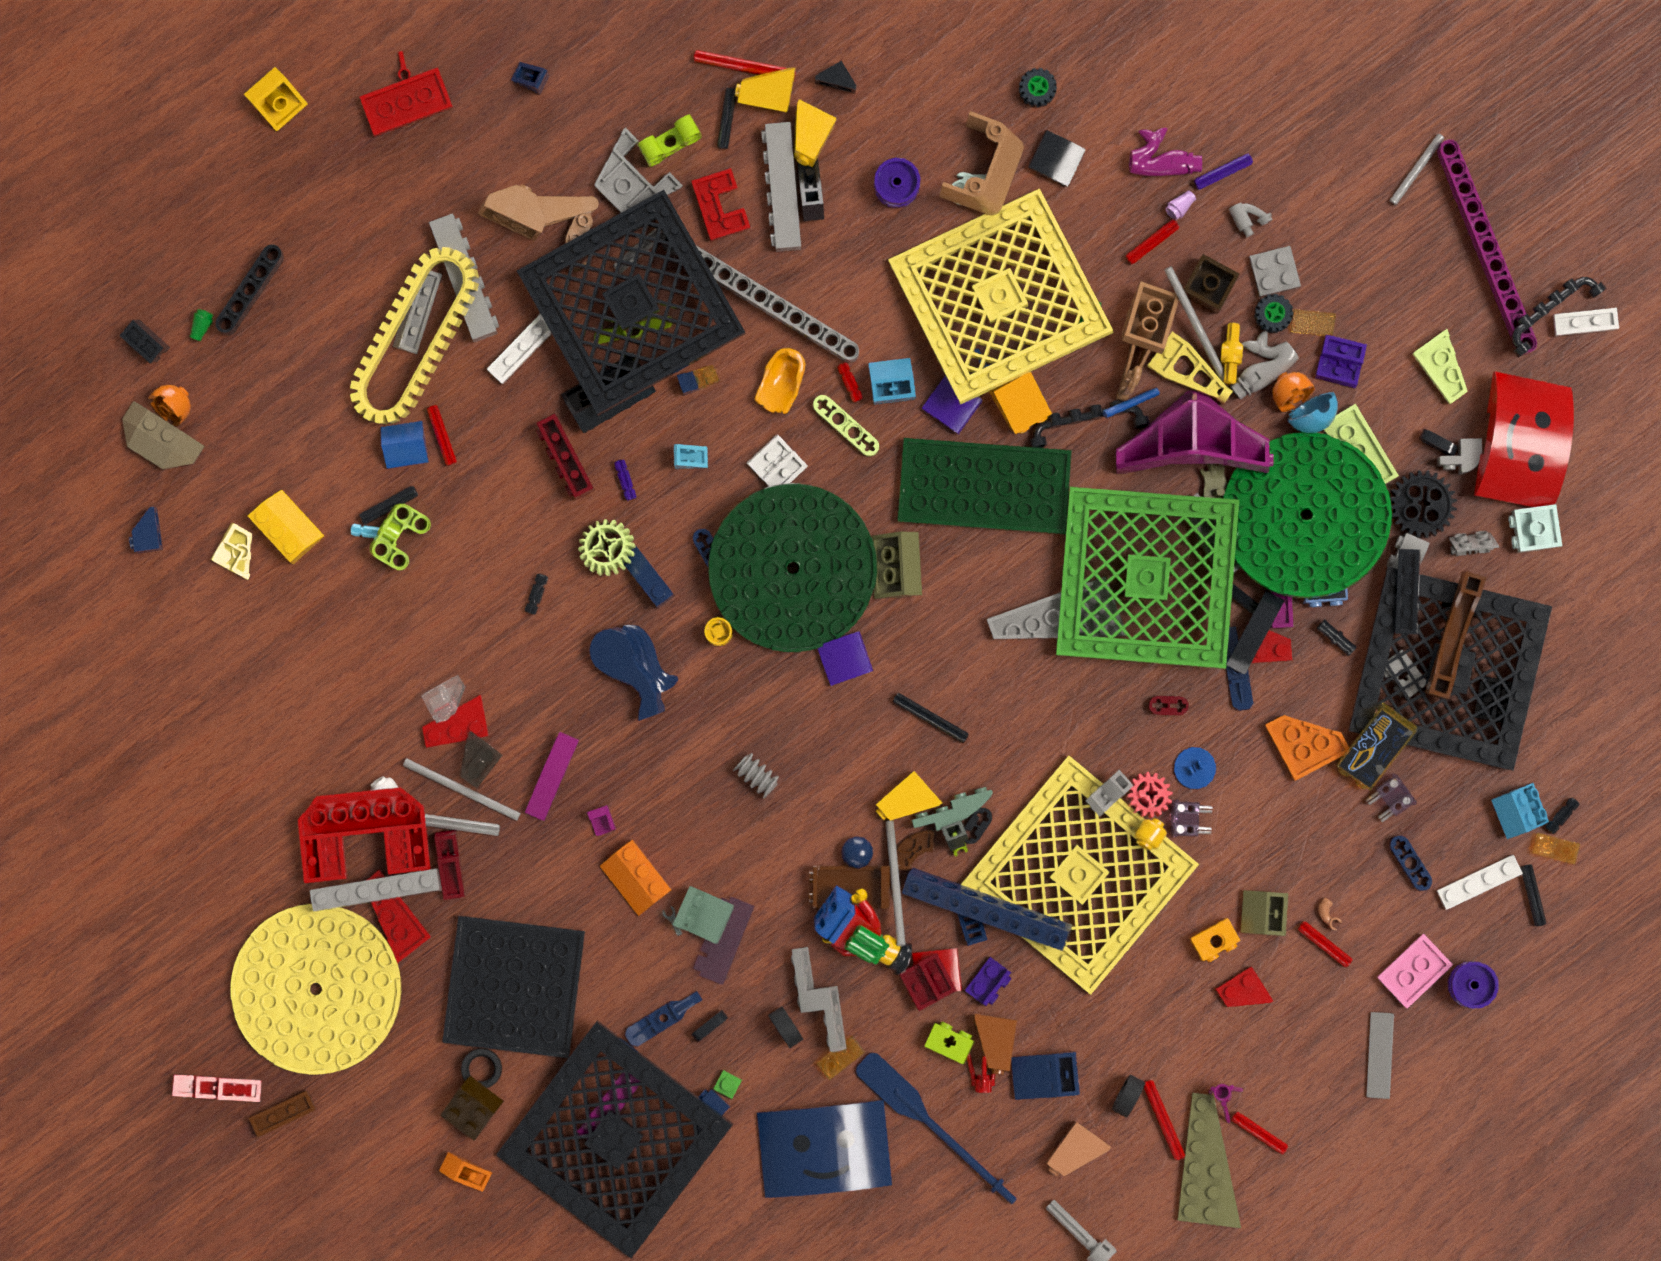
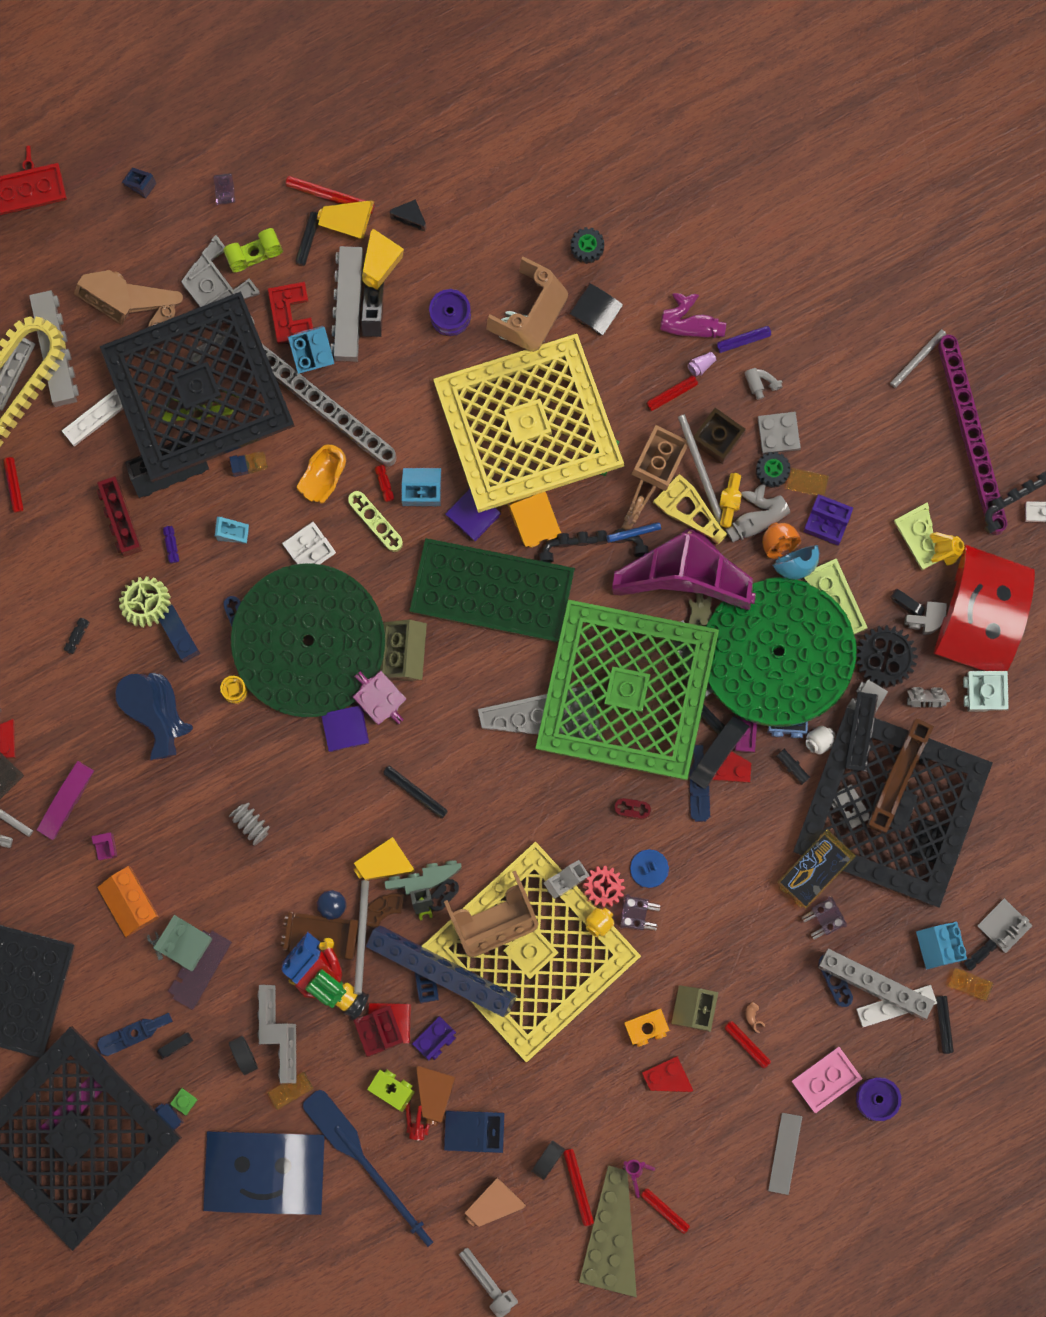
camera: 15 degrees right, 5 degrees down
(627, 74) = (224, 188): none -> bracket
(750, 244) = (311, 349): none -> dark azure slope
(877, 620) = (379, 697): none -> plate
(1040, 850) = (495, 925): none -> medium nougat windscreen
(1305, 745) = (752, 860): orange plate -> none
(1362, 605) = (820, 739): none -> white head
(1456, 862) = (876, 984): none -> light grey brick
(1474, 377) = (946, 548): none -> yellow brick
(1585, 780) = (1005, 925): none -> light grey hinge

